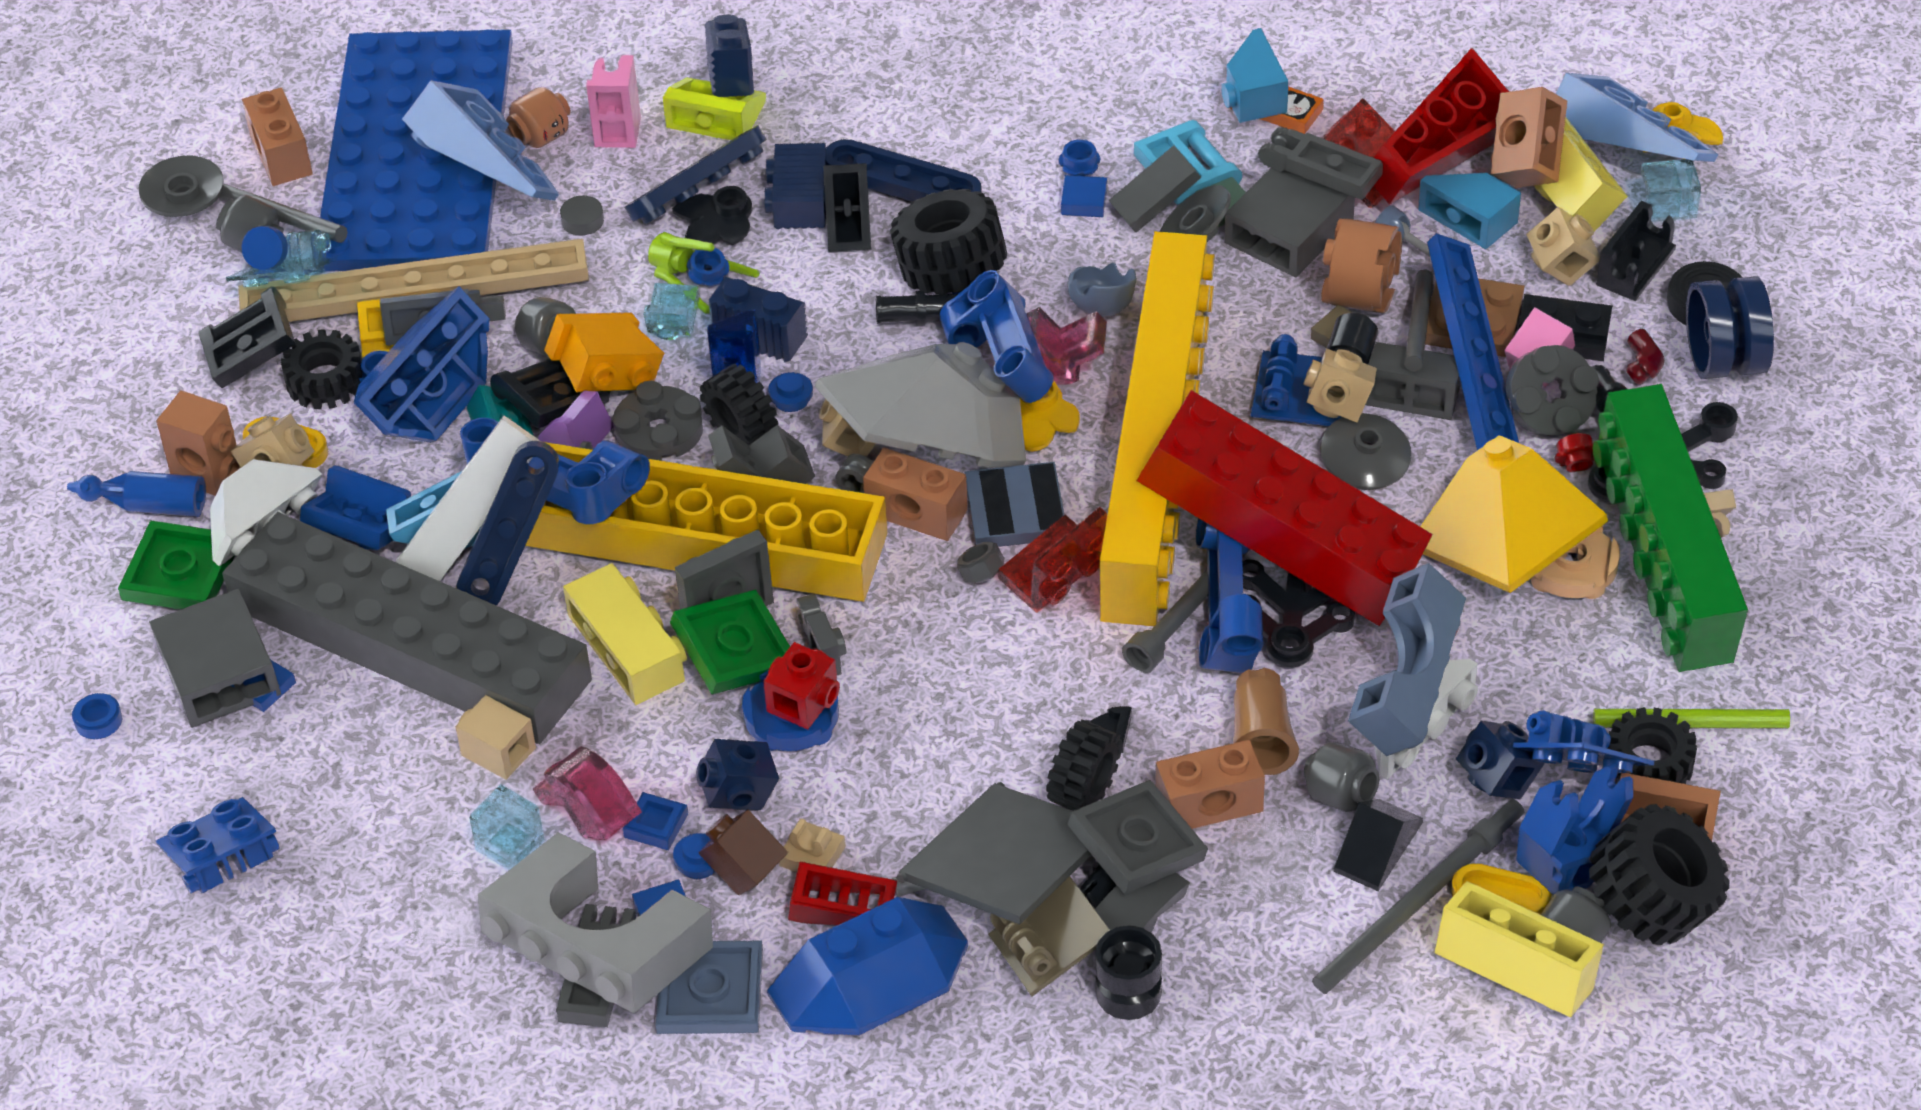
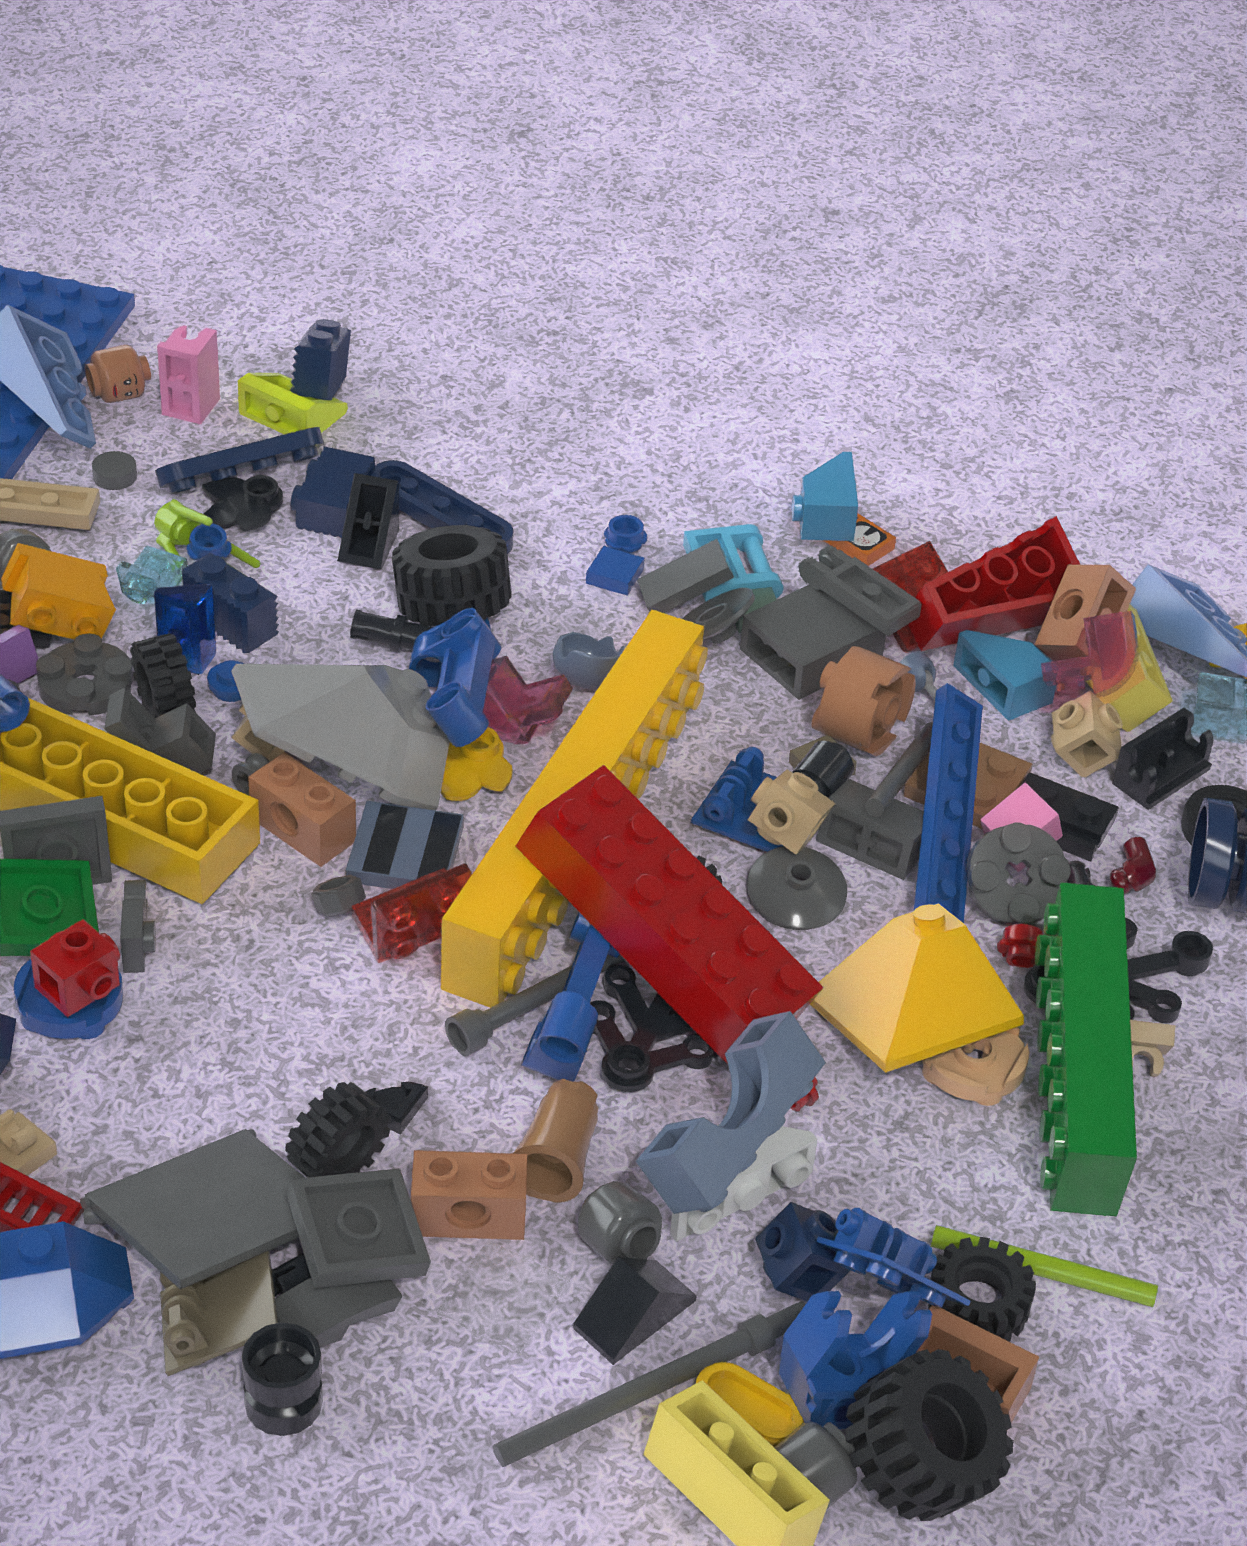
camera: 10 degrees right, 5 degrees down
(1568, 170) = (1111, 658): none -> clear pink brick

